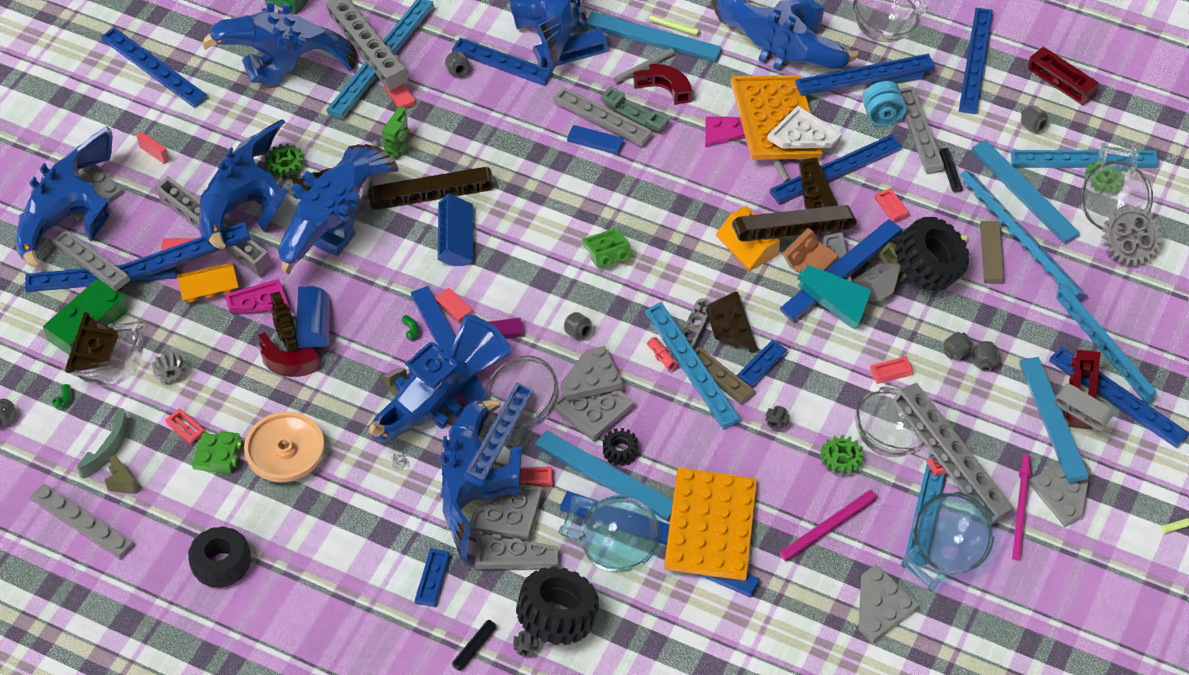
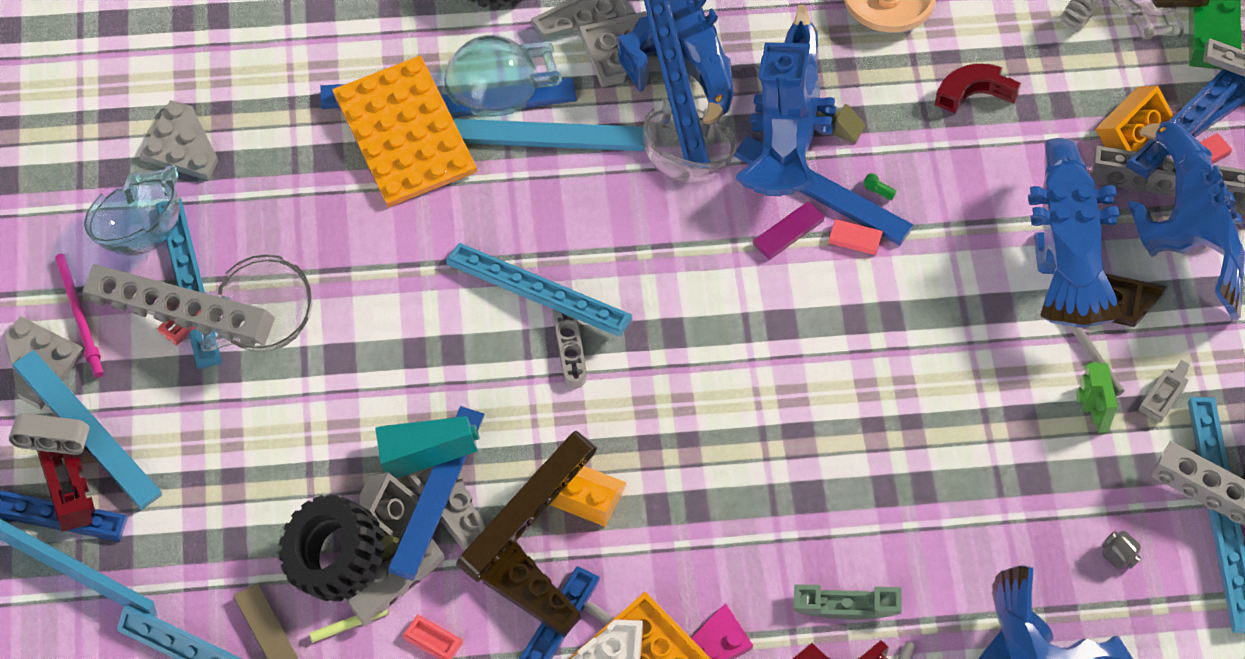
camera: 145 degrees right, 5 degrees up
(254, 298) = (1075, 126): dark pink wing -> none
(283, 322) = (1002, 93): dark brown gear -> none
(284, 160) = (1196, 307): bright green gear -> none
(312, 317) = (984, 130): blue brick -> none
(349, 128) = (1165, 392): none -> light grey hinge
(400, 461) = (765, 37): clear bush -> none
(401, 96) = (1141, 470): coral tile -> none
(431, 188) = (995, 366): dark brown beam -> none
(455, 231) = (926, 318): blue brick -> none
(503, 61) = (1093, 594): blue tile -> none
(536, 476) = (622, 98): coral tile -> none
(578, 326) = (698, 273): dark grey head -> none
(591, 375) = (639, 224): light grey plate -> none
(594, 413) = (612, 190): light grey plate -> none
(595, 139) = (866, 538): blue tile -> none
(603, 116) = (881, 573): light grey plate -> none
(607, 247) = (737, 386): bright green plate -> none
(620, 456) = (558, 177): black tyre -> none
(662, 353) = (582, 288): coral pin -> none
(725, 378) = (500, 304): dark tan tile -> none
(730, 322) = (530, 366): dark brown wing -> none
(762, 363) = (463, 341): blue tile -> none
(777, 417) = (404, 275): dark grey gear -> none
(810, 251) = (483, 492): nougat bracket -> none
(828, 525) = (280, 195): dark pink axle -> none
(842, 456) = (308, 262): bright green gear -> none
(891, 370) = (310, 408): coral tile -> none
(957, 345) = (244, 468): dark grey head -> none
(986, 355) = (204, 473): dark grey head -> none

